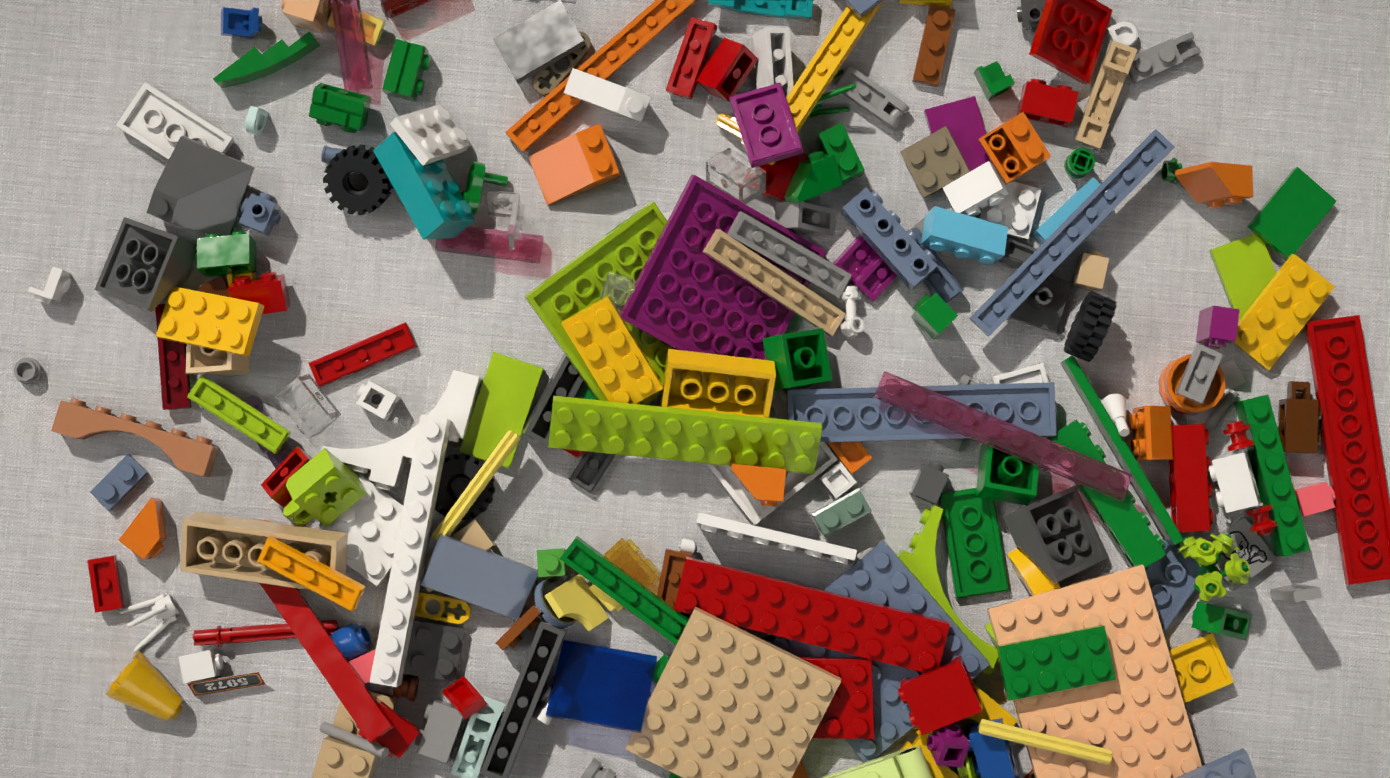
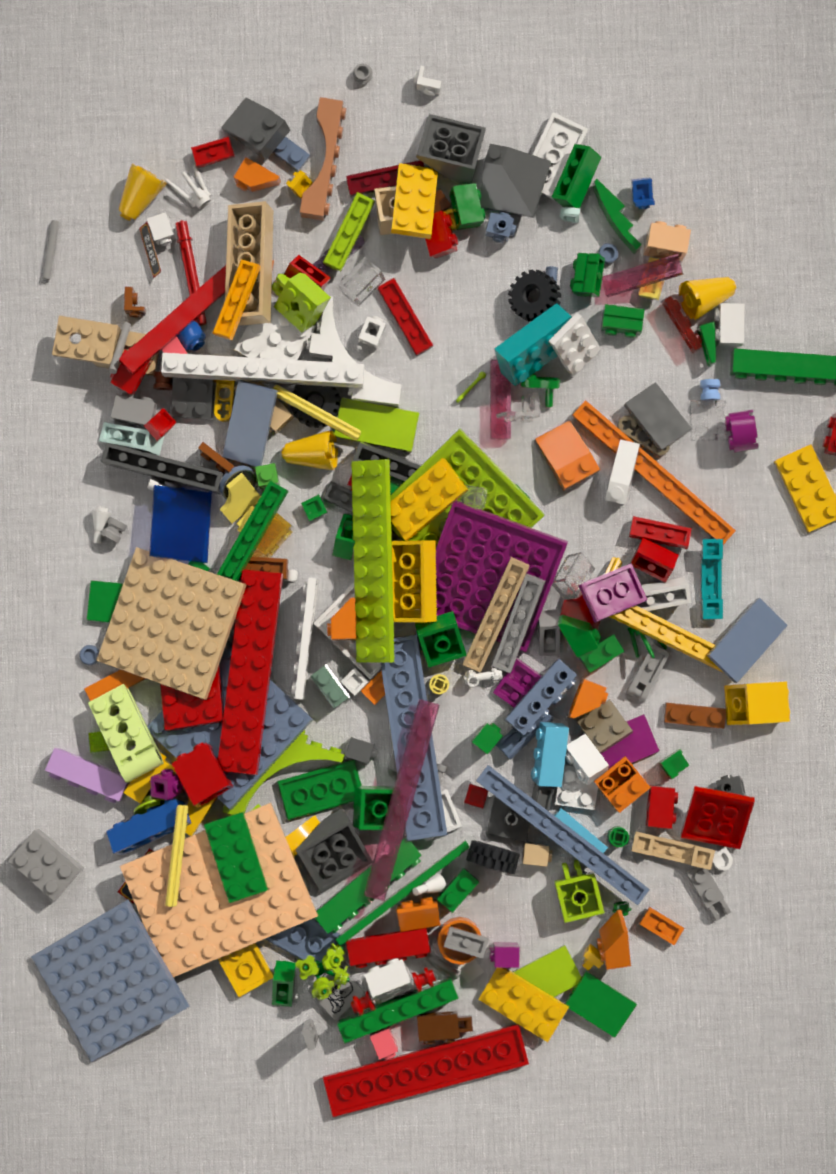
camera: 80 degrees right, 0 degrees up
(80, 520) = (256, 127): none -> dark grey slope
(164, 472) = (300, 183): none -> yellow tile
(206, 105) = (576, 176): none -> green brick
(291, 718) = (130, 301): none -> dark orange bracket
(313, 76) = (609, 252): none -> sand blue tile
(454, 263) = (482, 375): none -> lime hinge
(527, 498) = (313, 451): none -> yellow cone
(601, 505) = (314, 508): none -> green plate
(652, 470) = (344, 539): none -> green slope
(850, 370) = (437, 686): none -> light yellow wheel
(898, 179) = (587, 698): none -> orange slope
(1005, 340) = (476, 796): none -> red tile
(1125, 378) = (458, 889): none -> green brick
(1138, 234) = (568, 887): none -> lime hinge
(1200, 122) = (661, 925): none -> orange plate
(1231, 216) = (592, 957): none -> yellow tile

